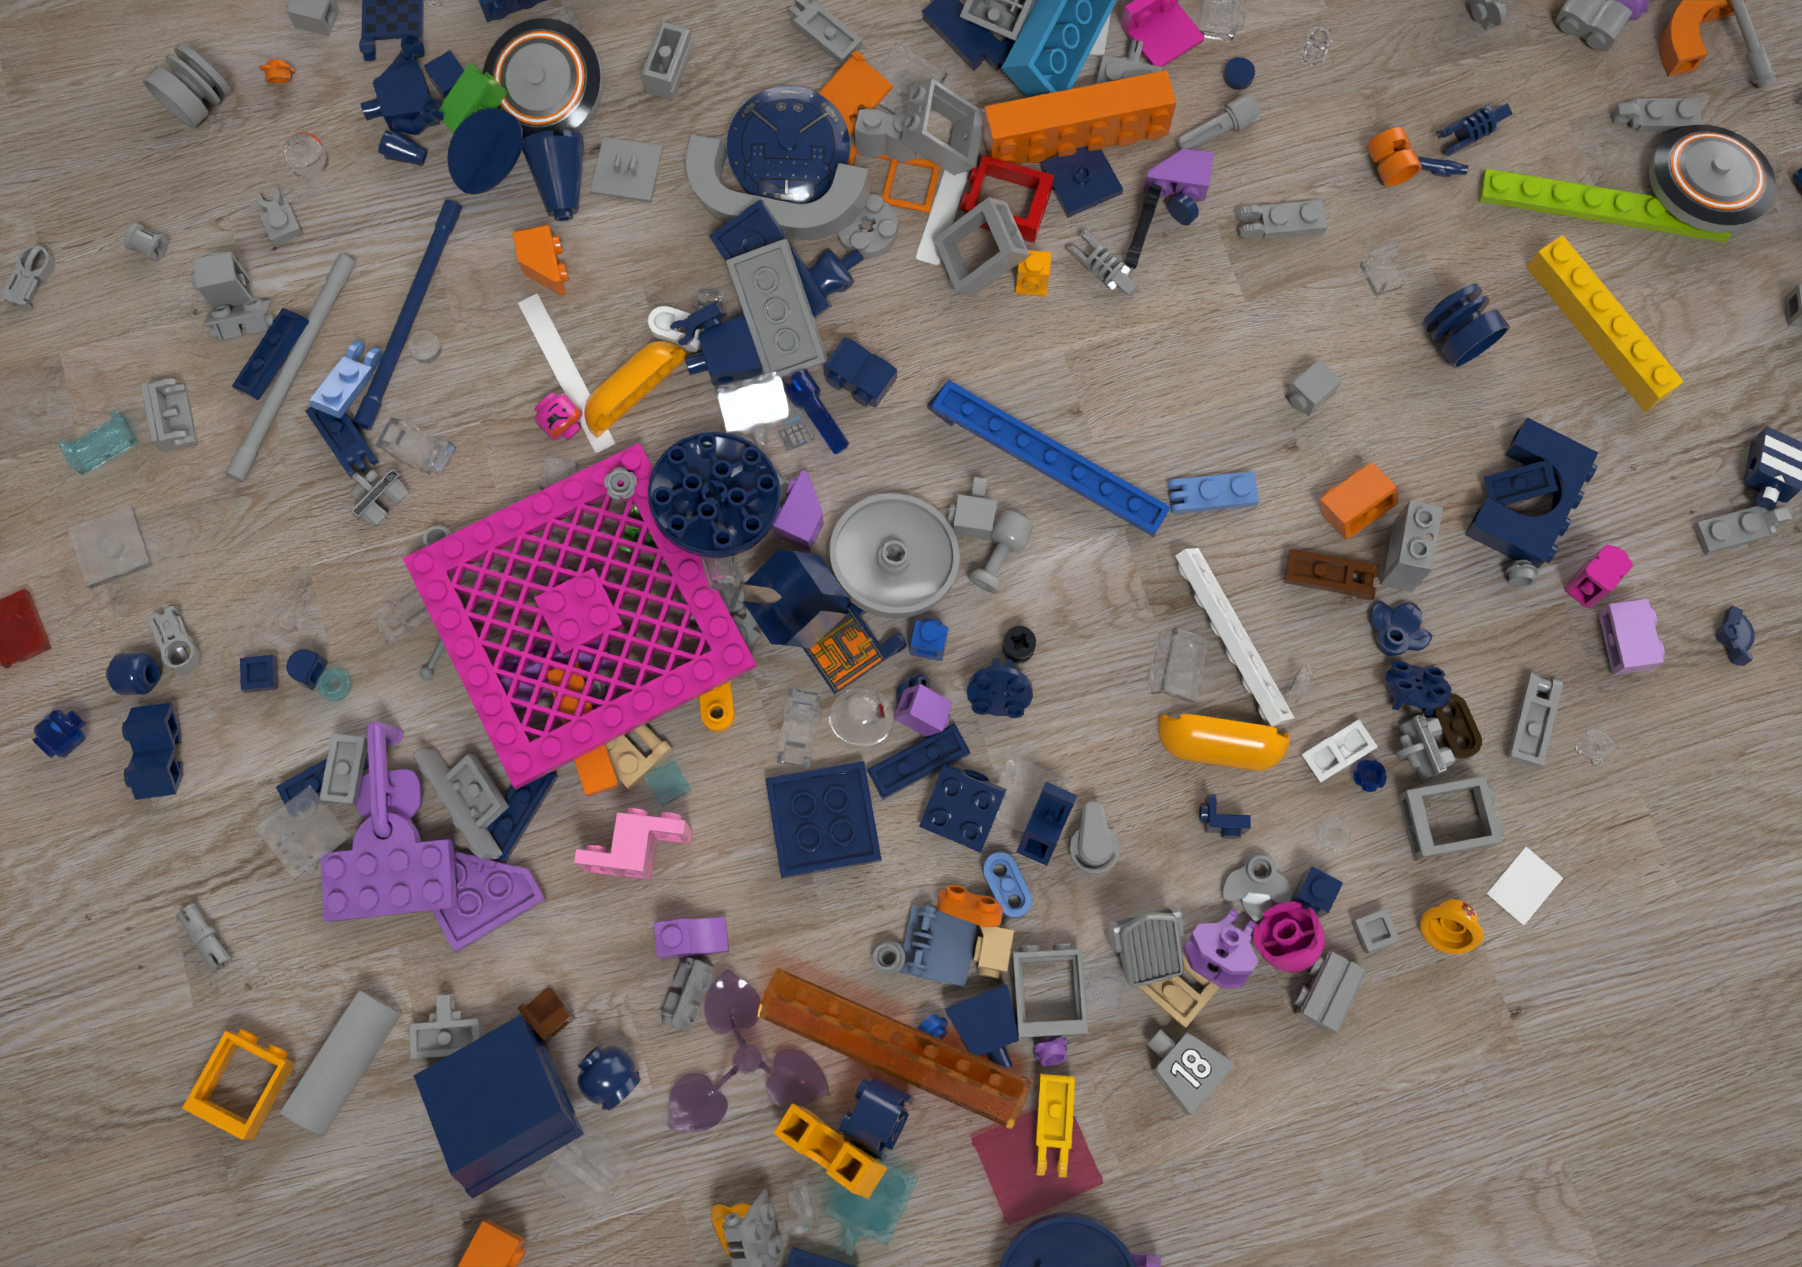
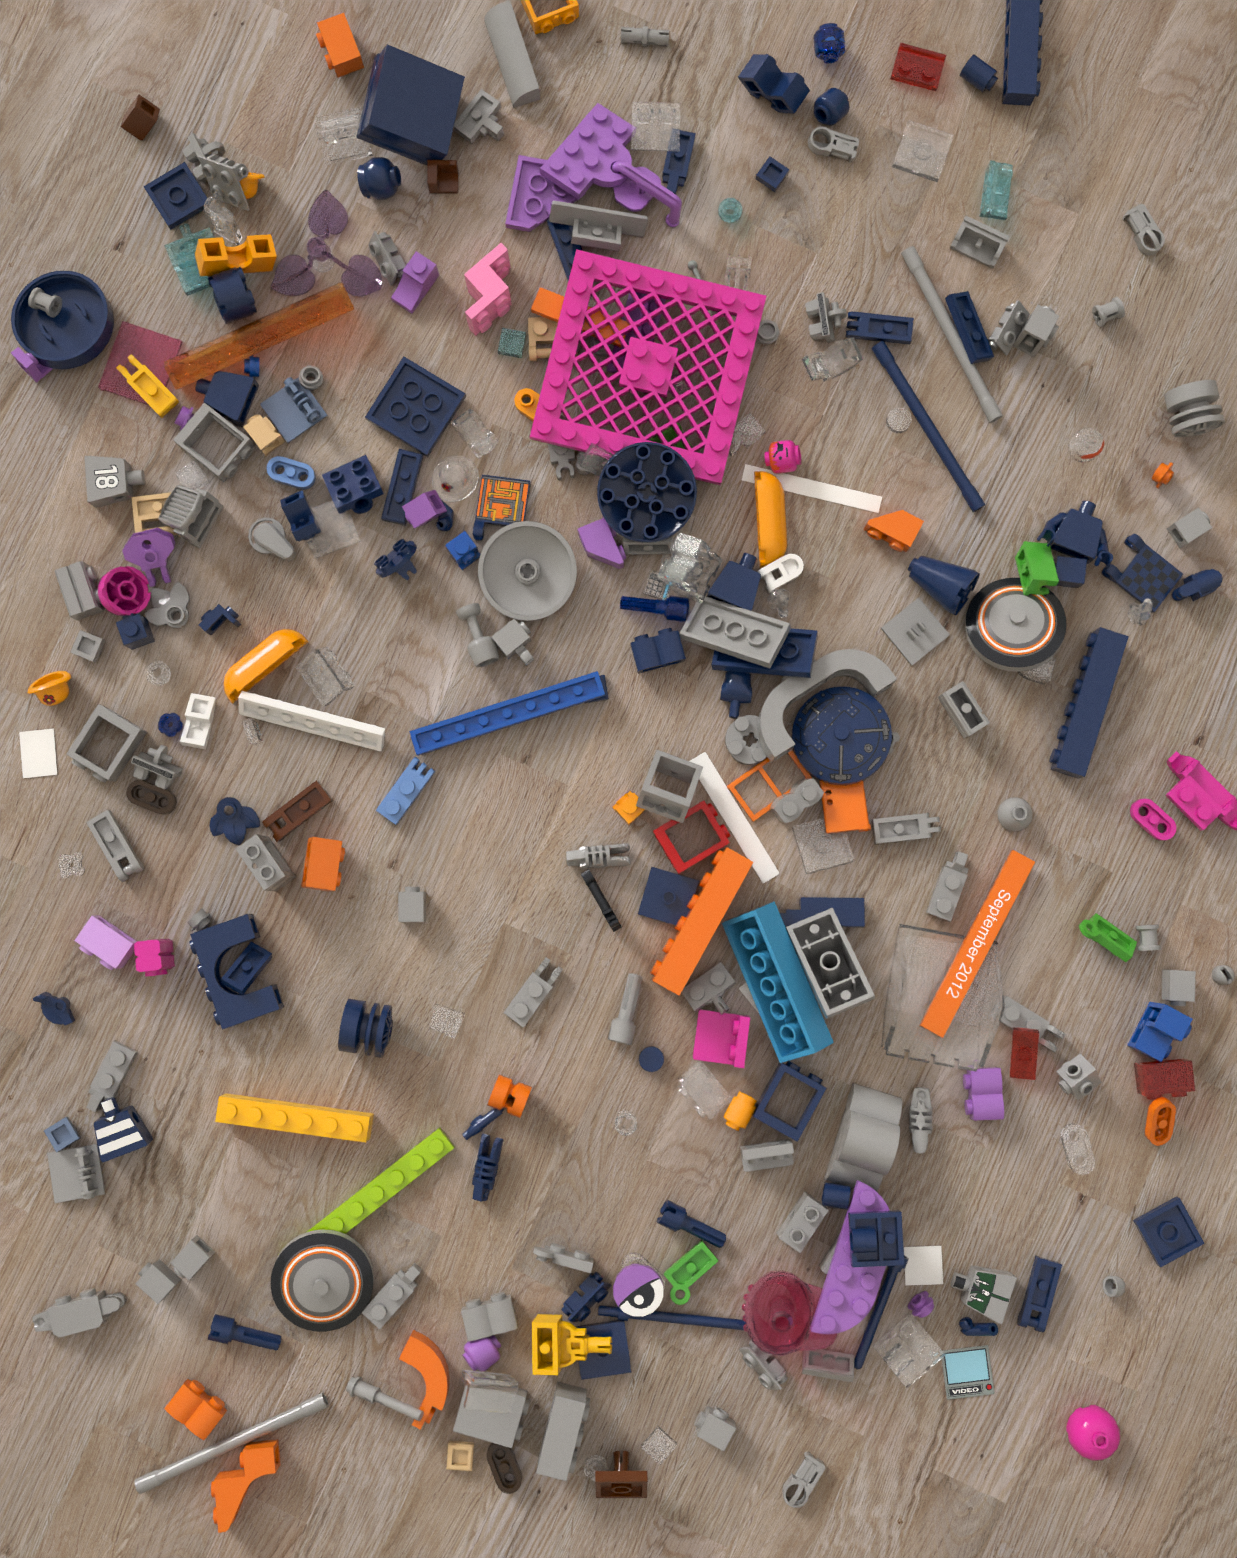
camera: 130 degrees right, 10 degrees up
(279, 219) = (1057, 400): light grey plate -> none
(306, 667) = (751, 199): dark blue brick -> none
(344, 769) = (669, 171): light grey plate -> none
(346, 380) = (912, 354): medium blue hinge -> none
(401, 149) = (1044, 506): dark blue cone -> none
(484, 150) = (995, 552): dark blue piece -> none
(620, 474) = (700, 441): light grey plate -> none
(704, 318) = (766, 586): dark blue plate -> none
(809, 602) = (543, 490): dark blue piece -> none
(967, 122) = (759, 852): light grey window -> none
(970, 907) = (298, 438): orange plate -> none
(1016, 650) = (417, 602): black wheel -> none
(1183, 173) = (612, 958): medium lavender slope -> none
(1183, 209) = (591, 937): dark blue tile -> none
(1417, 686) = (198, 786): dark blue plate -> none

